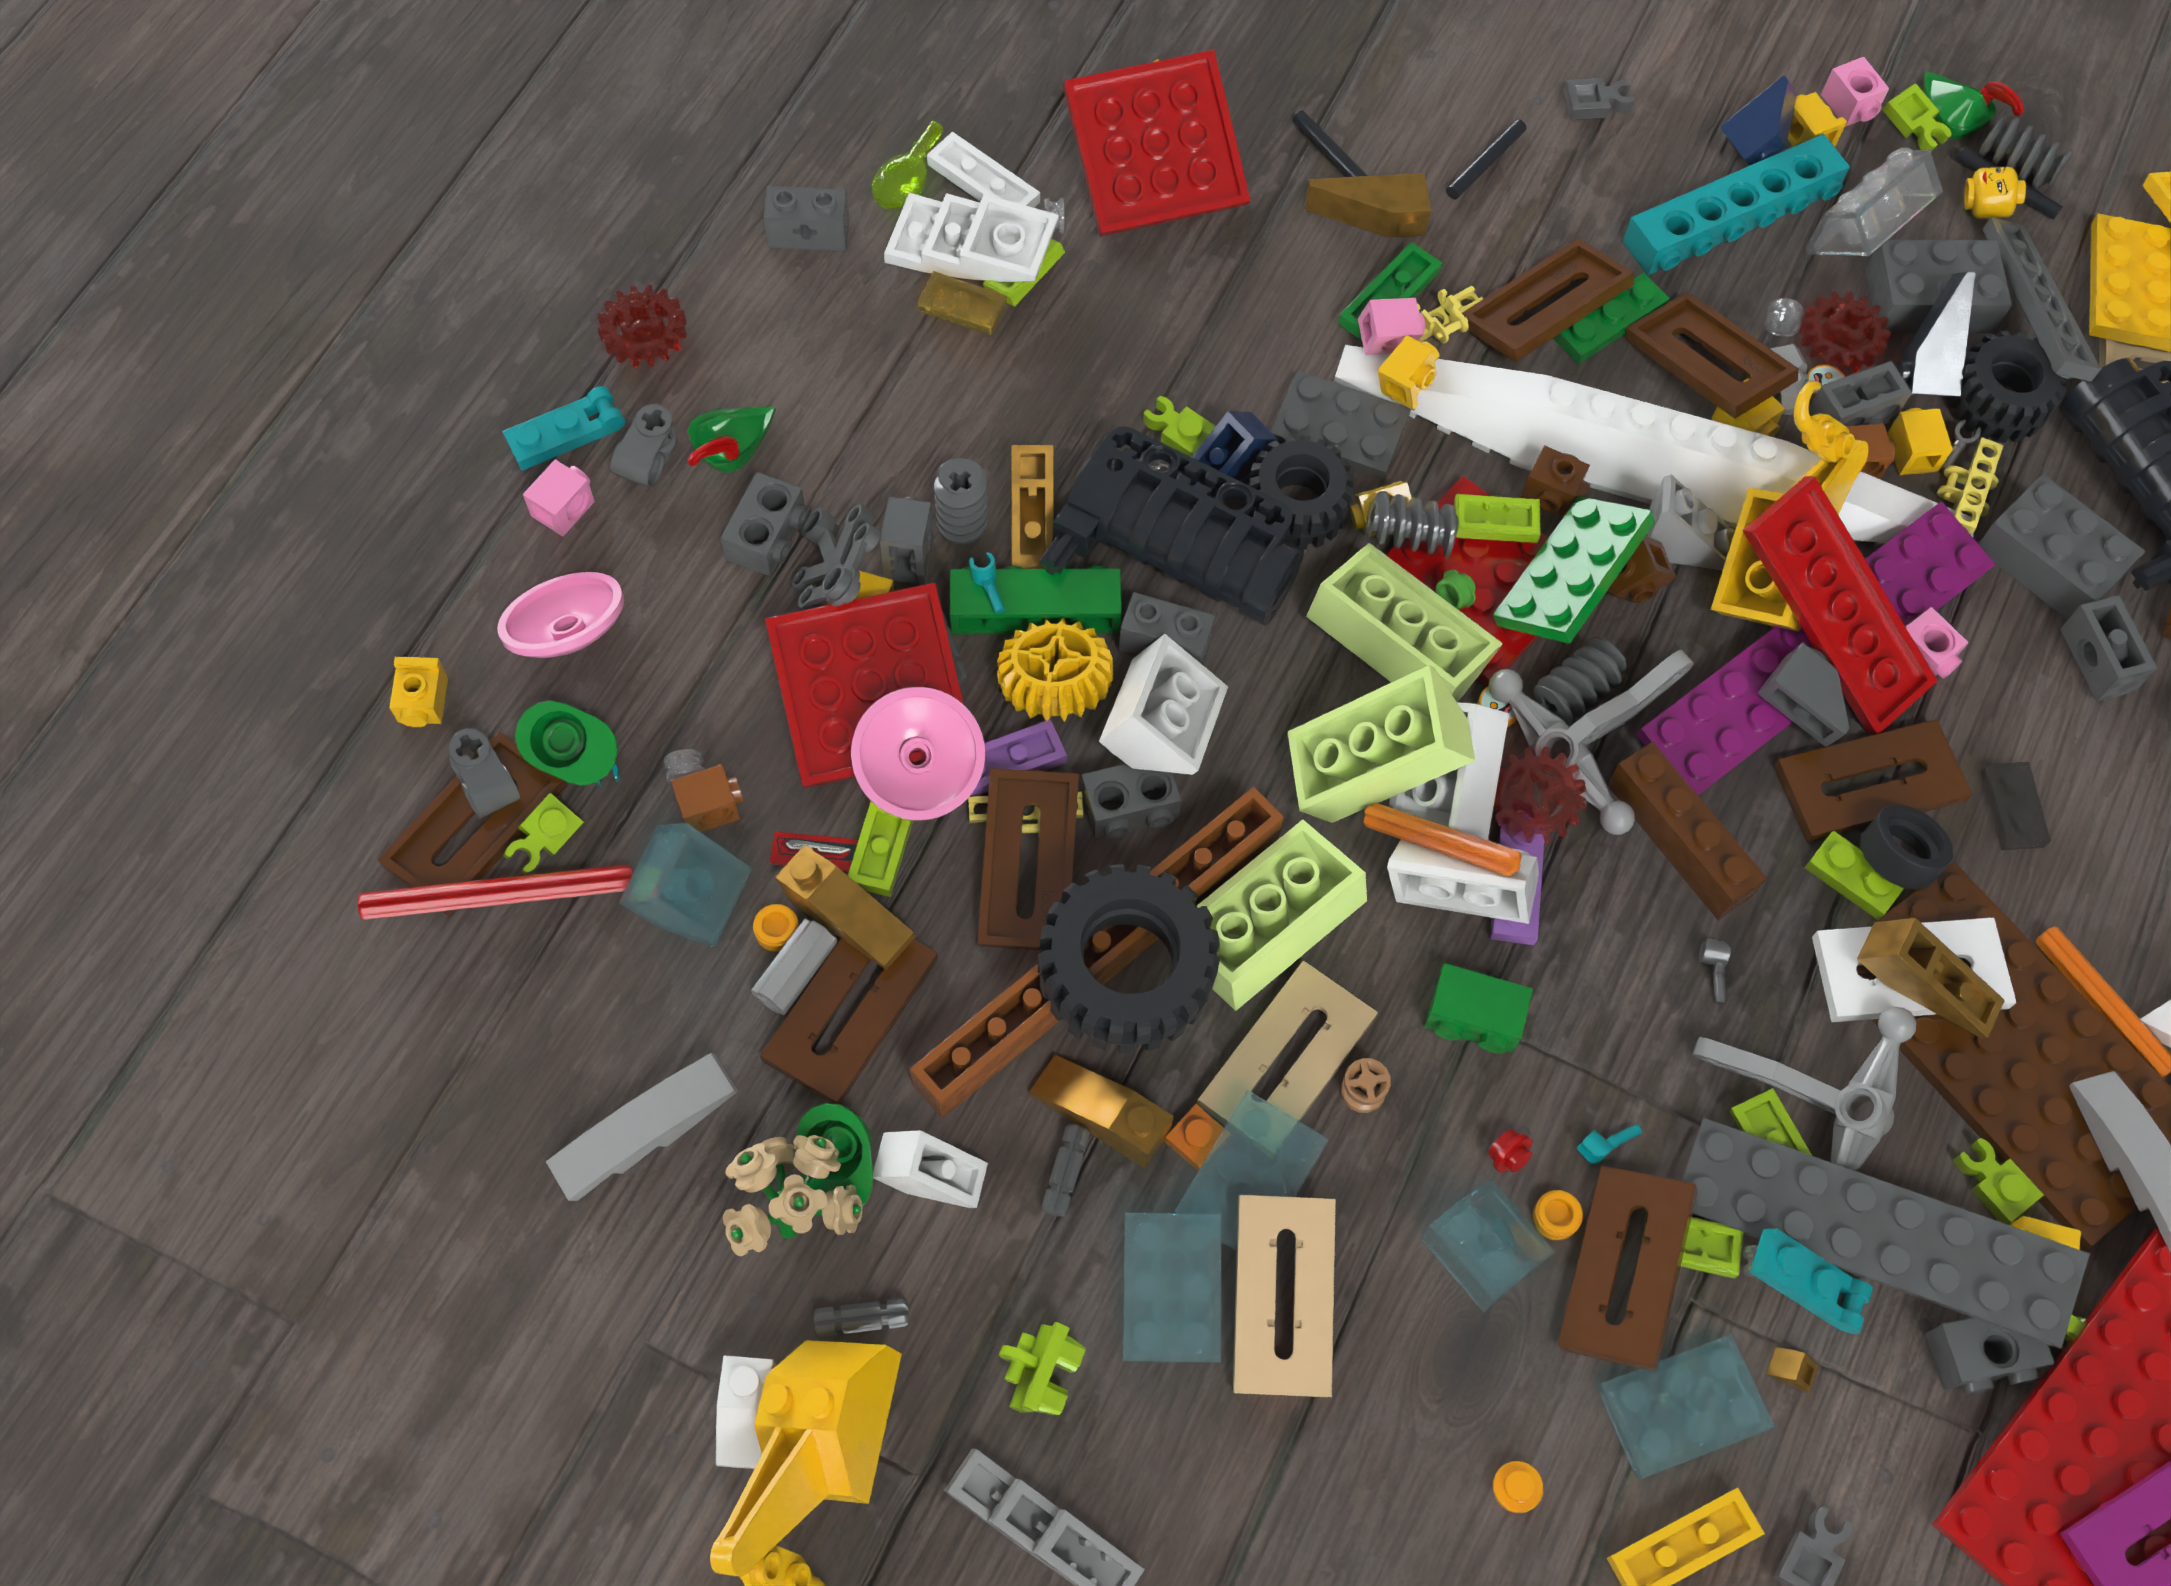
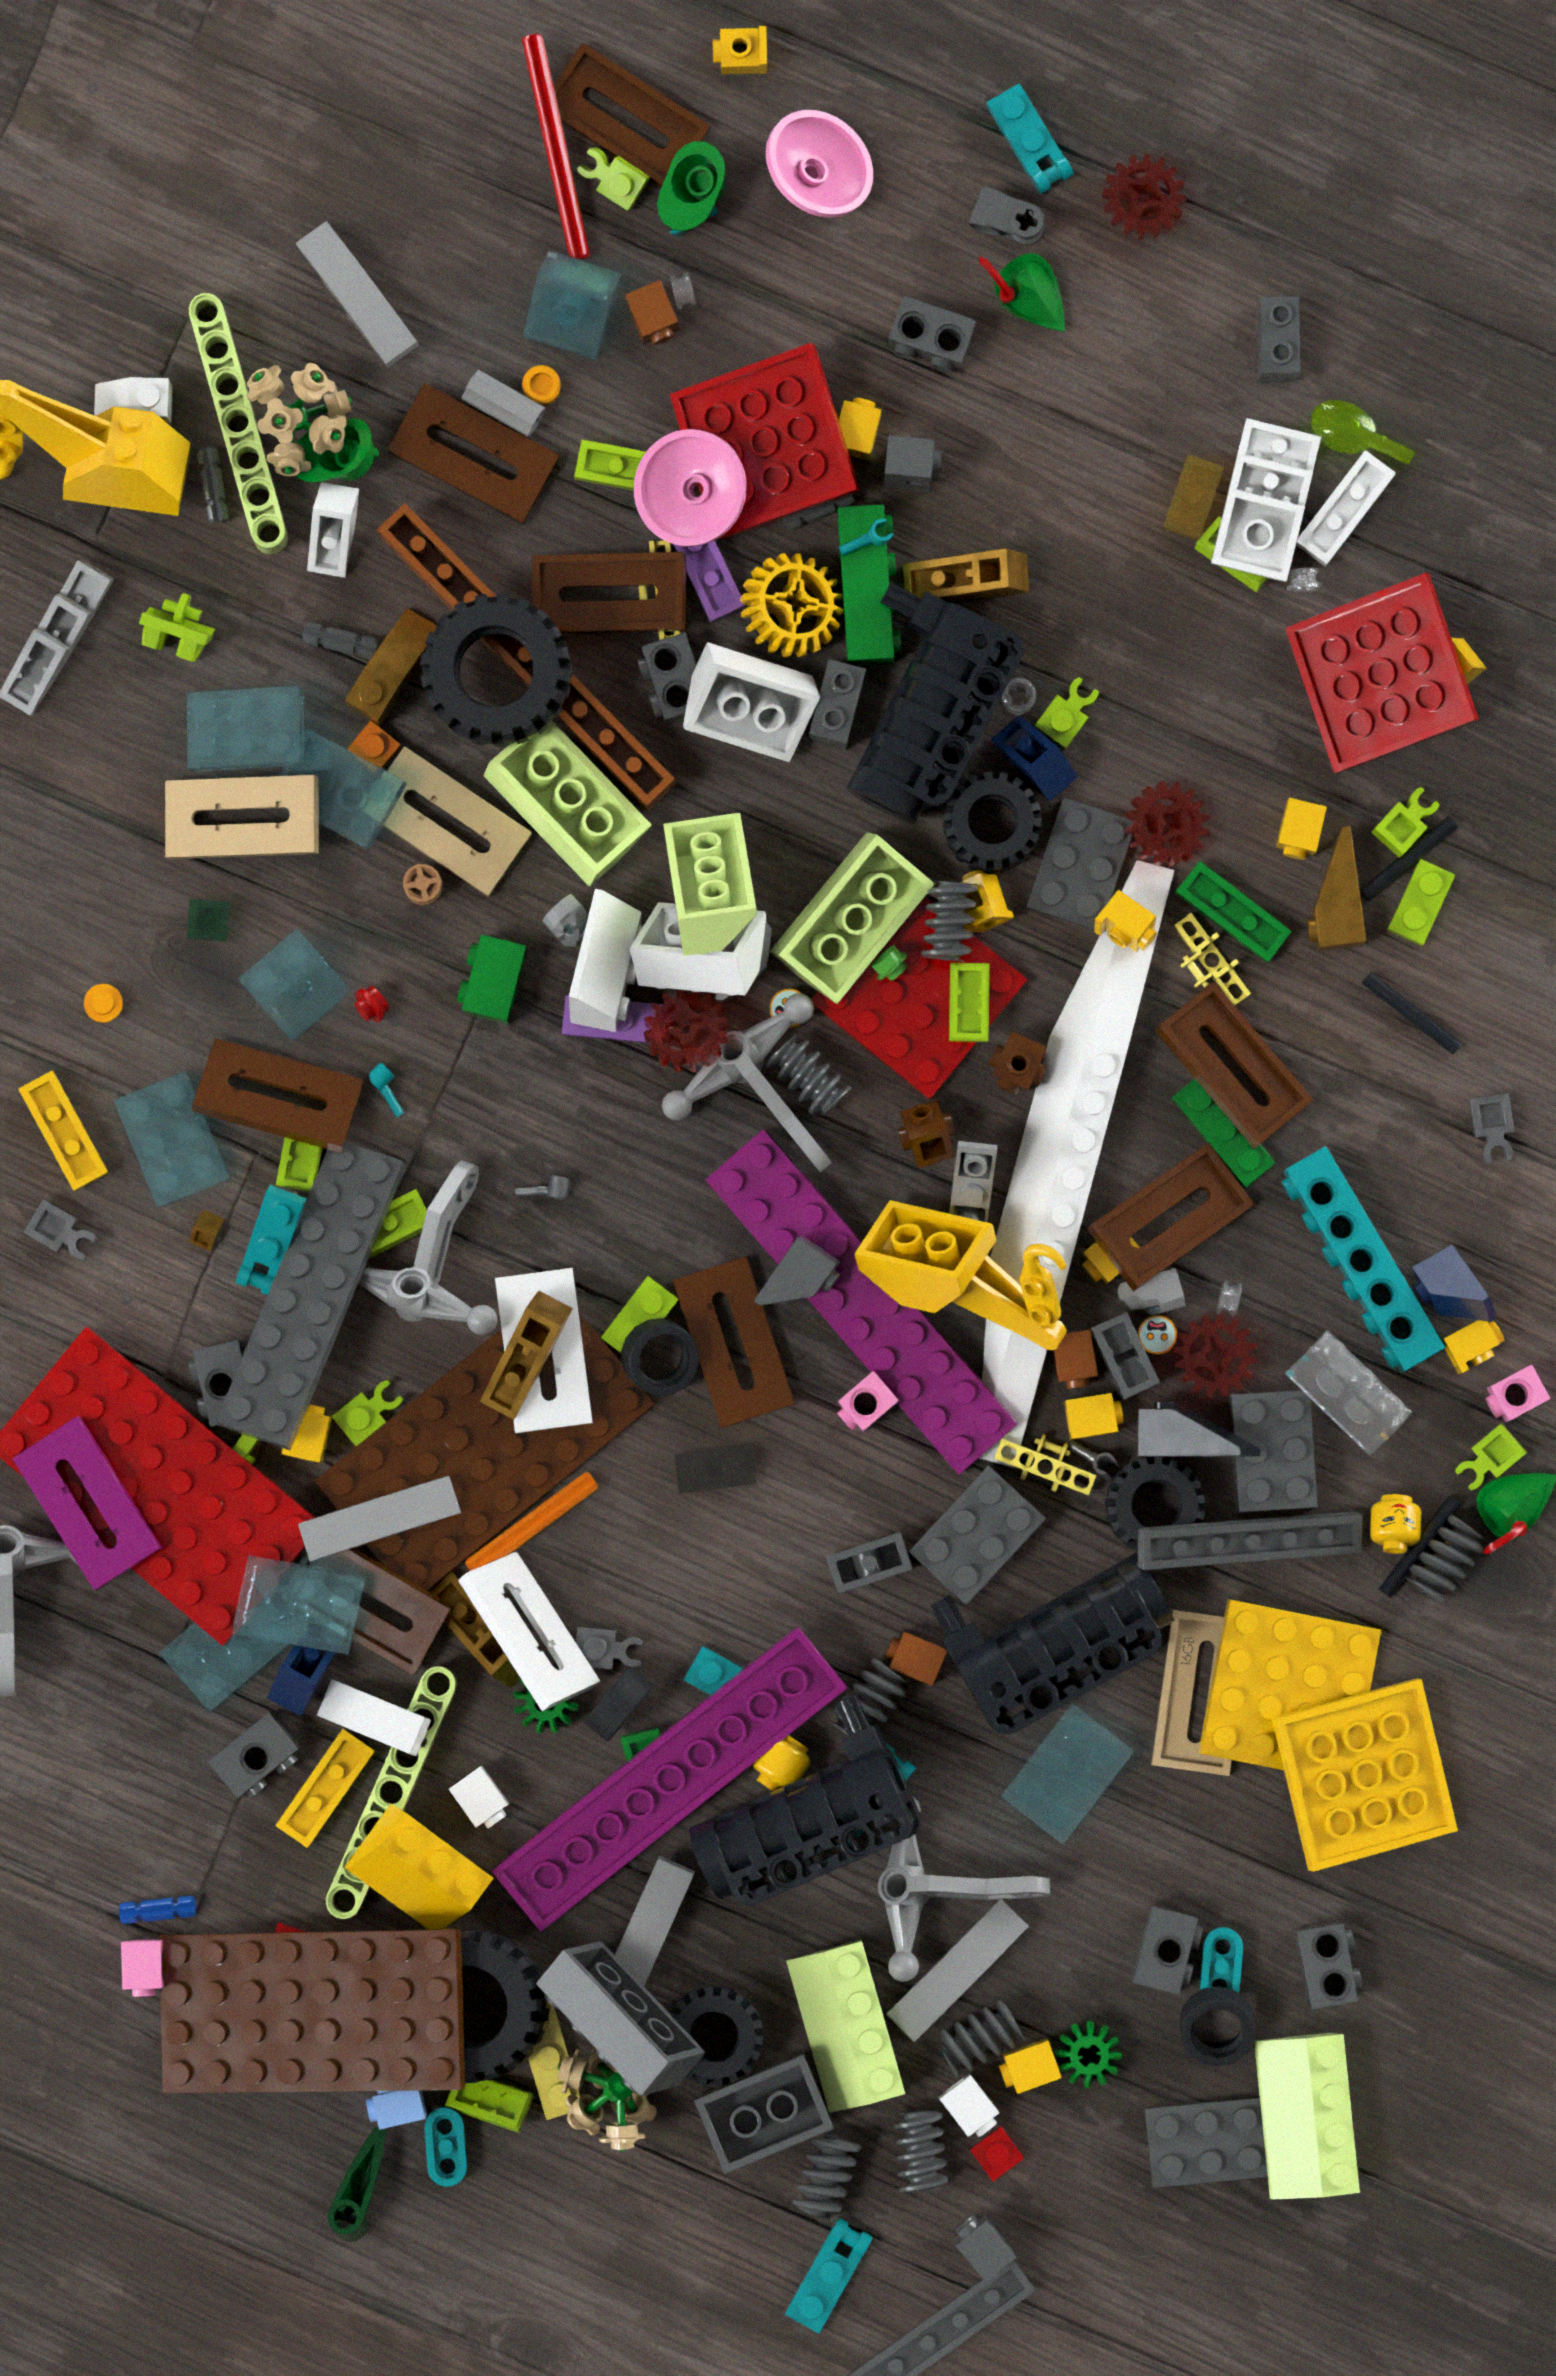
camera: 90 degrees right, 20 degrees up
(484, 779) = (655, 122): dark grey piece -> none
(559, 497) = (949, 145): bright pink brick -> none
(764, 1271) = (238, 405): none -> yellowish green beam
(834, 849) = (616, 410): sticker -> none
(840, 579) = (843, 404): dark grey plant -> none
(843, 907) = (552, 439): pearl gold slope -> none
(961, 501) = (959, 522): dark grey piece -> none
(1301, 151) = (1403, 825): none -> lime plate
(1301, 340) = (1179, 831): none -> clear red gear
(1306, 230) = (1300, 828): none -> yellow brick
(1377, 145) = (1421, 902): none -> lime plate
(1387, 323) = (1177, 907): bright pink brick -> none
(1408, 923) = (567, 921): none -> light grey rock
(1411, 1346) = (208, 920): none -> clear green plate
(1443, 839) = (627, 937): orange axle -> none
(1557, 1215) = (322, 1044): light orange tile -> none
(1574, 569) = (912, 1068): plate -> none
(1686, 831) = (667, 1164): reddish brown brick -> none
(1840, 604) = (871, 1298): red plate -> none

